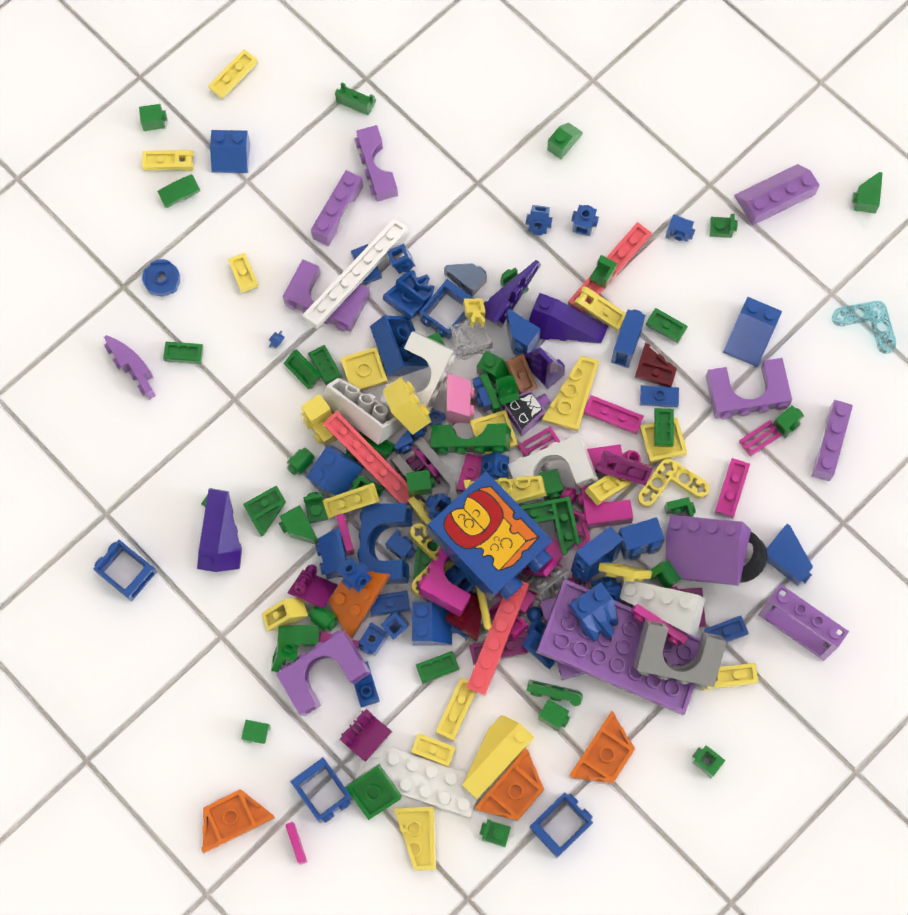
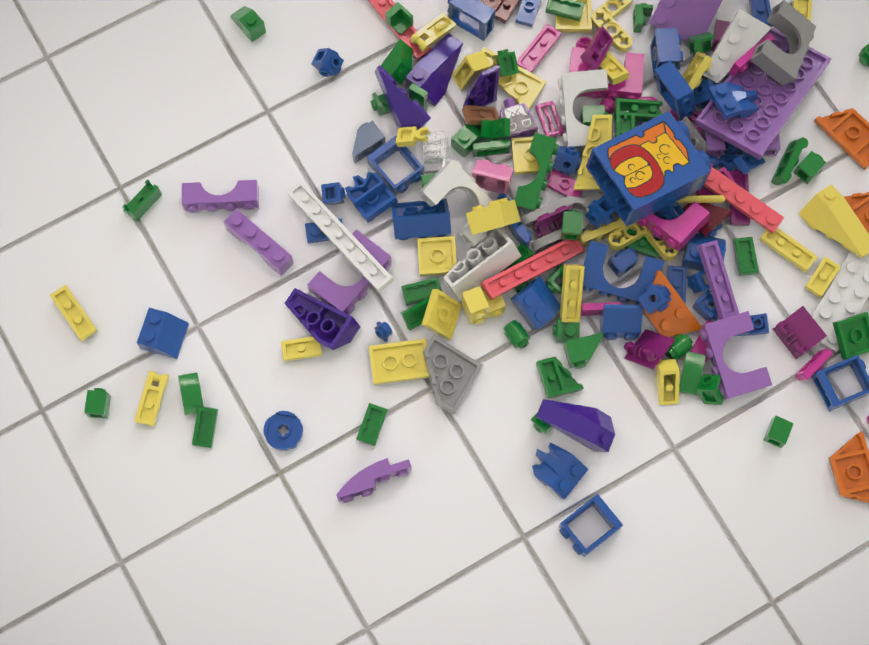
camera: 80 degrees left, 0 degrees up
(150, 211) = (205, 426): none -> green plate
(174, 530) = (559, 470): none -> blue plate
(246, 408) = (449, 373): none -> light grey plate
(249, 362) = (398, 361): none -> light yellow plate
(267, 288) = (325, 323): none -> dark purple wedge
(300, 384) = (441, 314): none -> light yellow plate
(334, 757) = (813, 365): none -> dark pink plate
(394, 636) = (718, 279): none -> medium lavender plate
(482, 397) = (495, 155): blue plate -> none
(522, 308) = (418, 94): none -> plate
(522, 333) = (443, 104): blue slope -> none
(555, 283) = (399, 61): none -> green slope
(569, 354) = (470, 68): none -> light yellow slope
(583, 383) = (506, 62): none -> green bracket
(584, 219) = (339, 23): blue brick -> none

